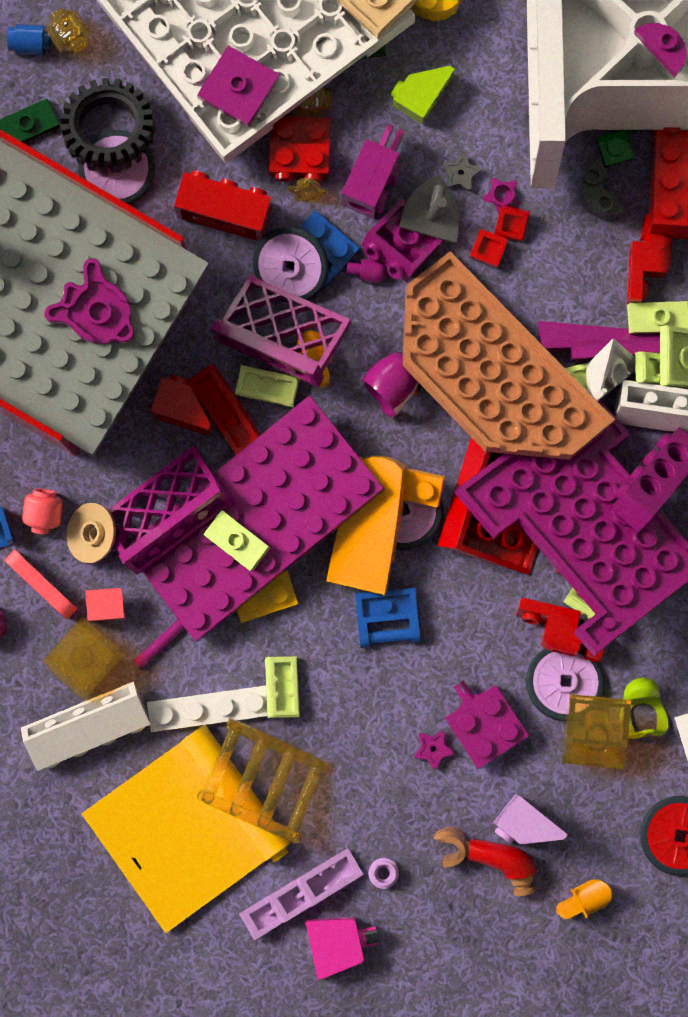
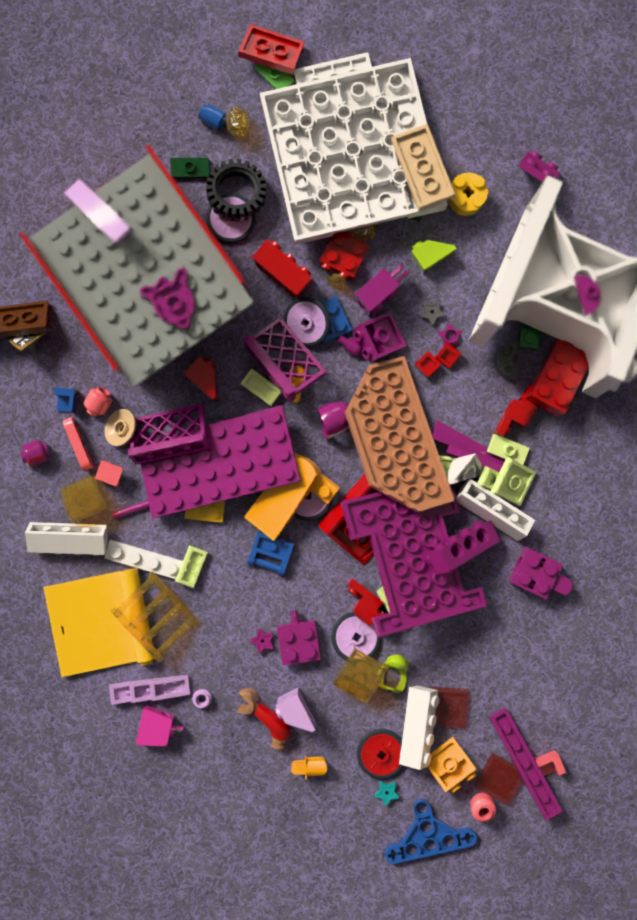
camera: 25 degrees right, 5 degrees up
(224, 408) = (230, 389): red plate -> none
(237, 541) = (201, 472): yellowish green plate -> none
(238, 86) = (322, 201): magenta plate -> none
(432, 211) = (404, 327): dark grey shield -> none

